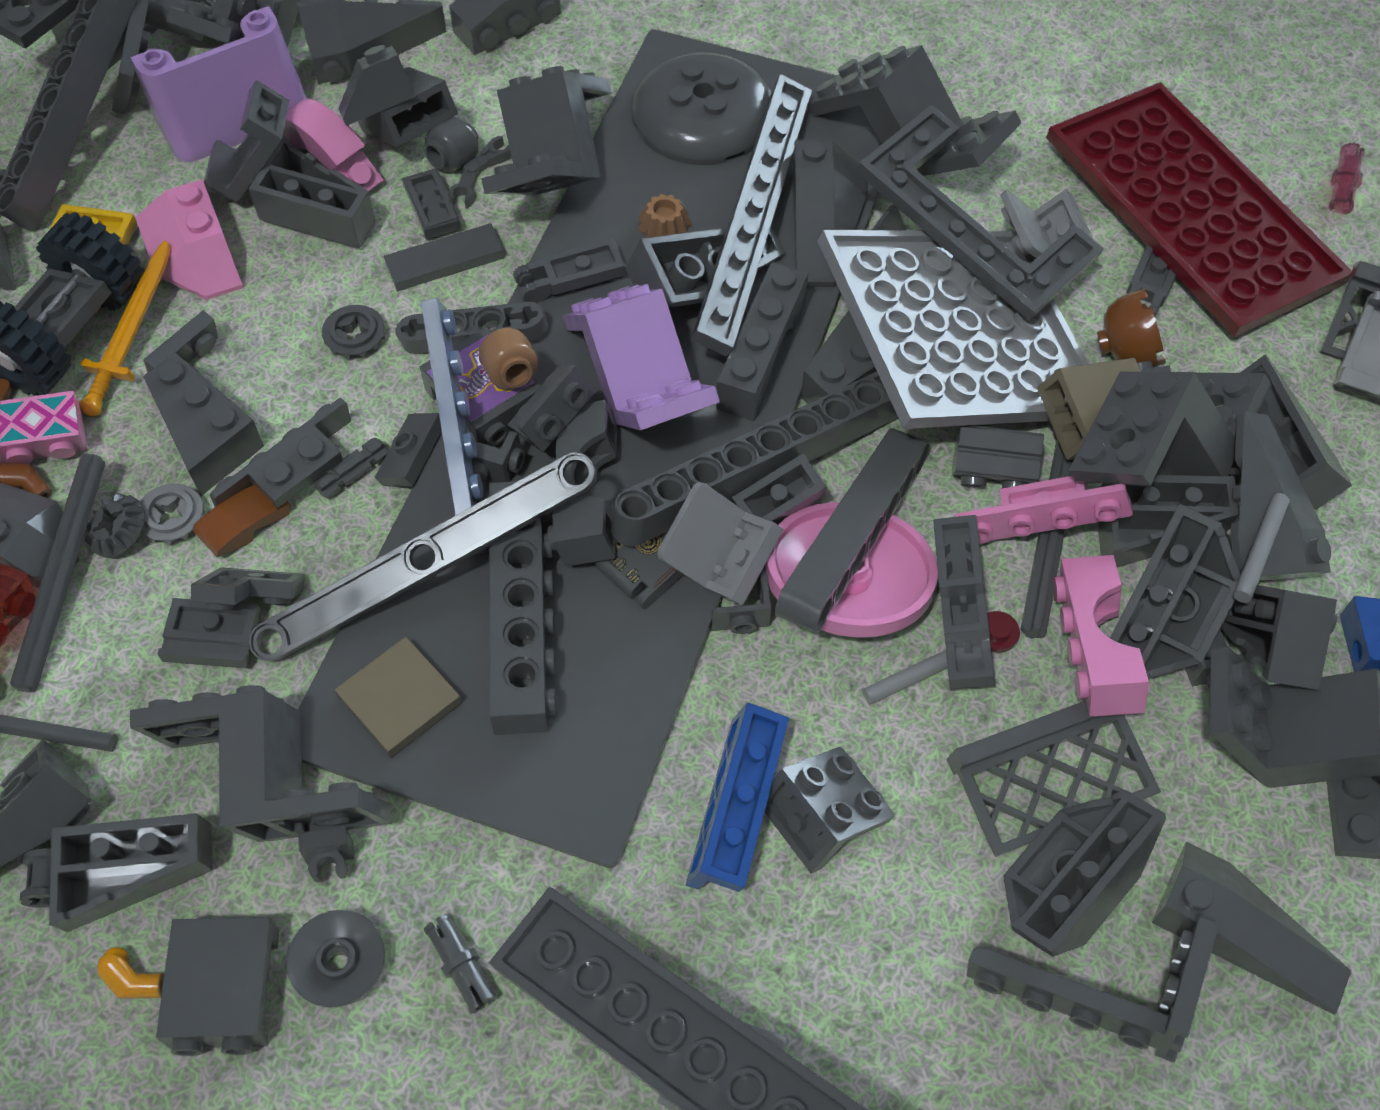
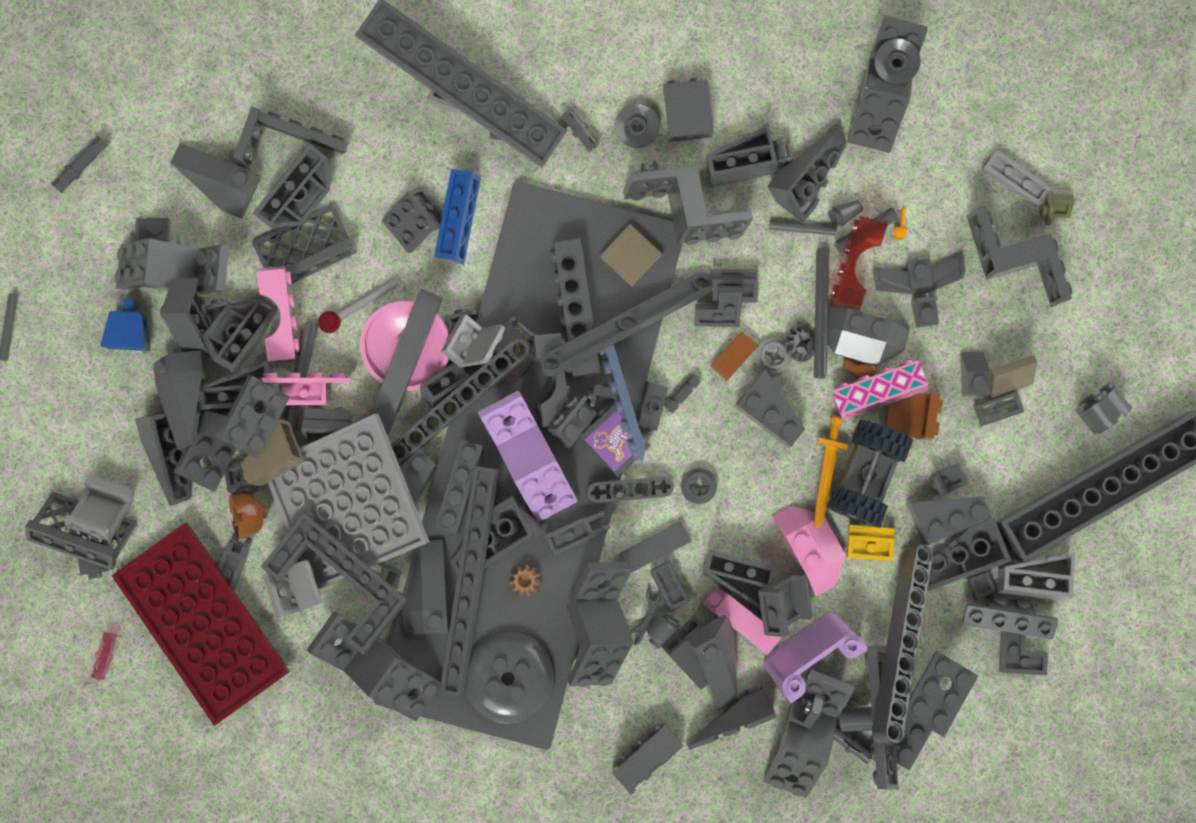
camera: 175 degrees right, 25 degrees up
(123, 980) = (732, 110): light orange arm -> none
(191, 340) = (797, 453): dark grey plate -> none
(293, 462) = (712, 386): dark grey bracket -> none
(508, 358) = (599, 444): medium nougat head -> none
(963, 602) = (347, 330): dark grey slope -> none
(1261, 548) = (191, 356): light grey bar -> none

